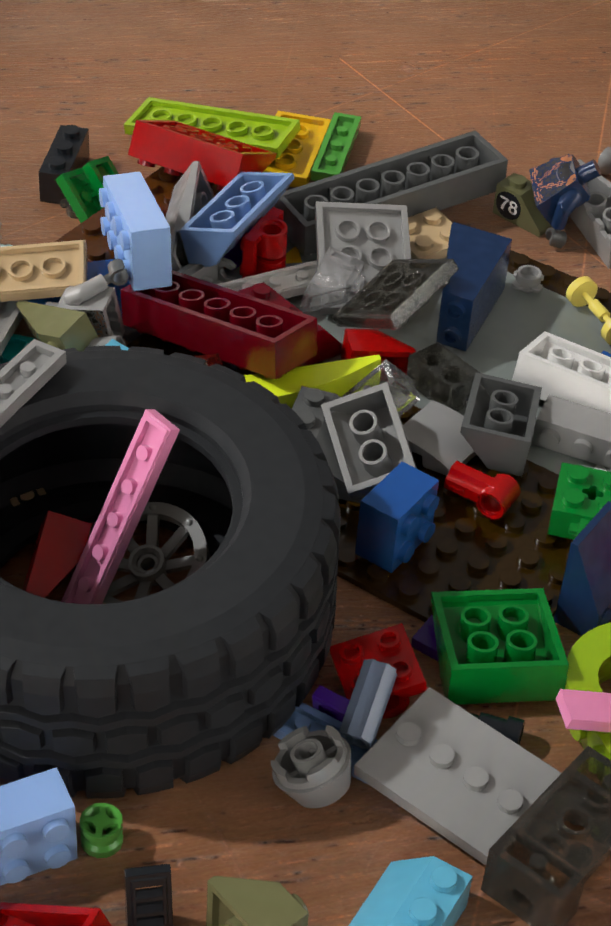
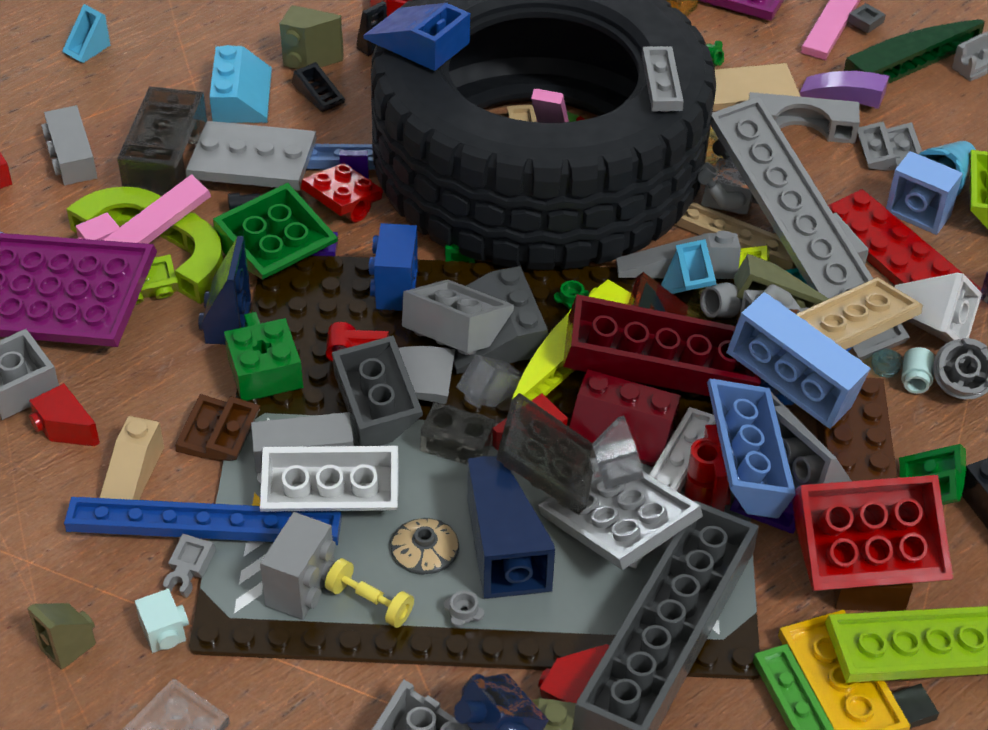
camera: 150 degrees right, 5 degrees up
(238, 549) = (423, 33): none -> blue slope
(291, 871) = (314, 73): none -> black slope
(313, 766) = (338, 118): light grey cone -> none
(368, 703) = (328, 150): sand blue axle -> none
(429, 234) = (594, 611): tan plate -> none
(478, 208) = (570, 674): none -> red slope
(519, 331) = (424, 555): none -> tan dish

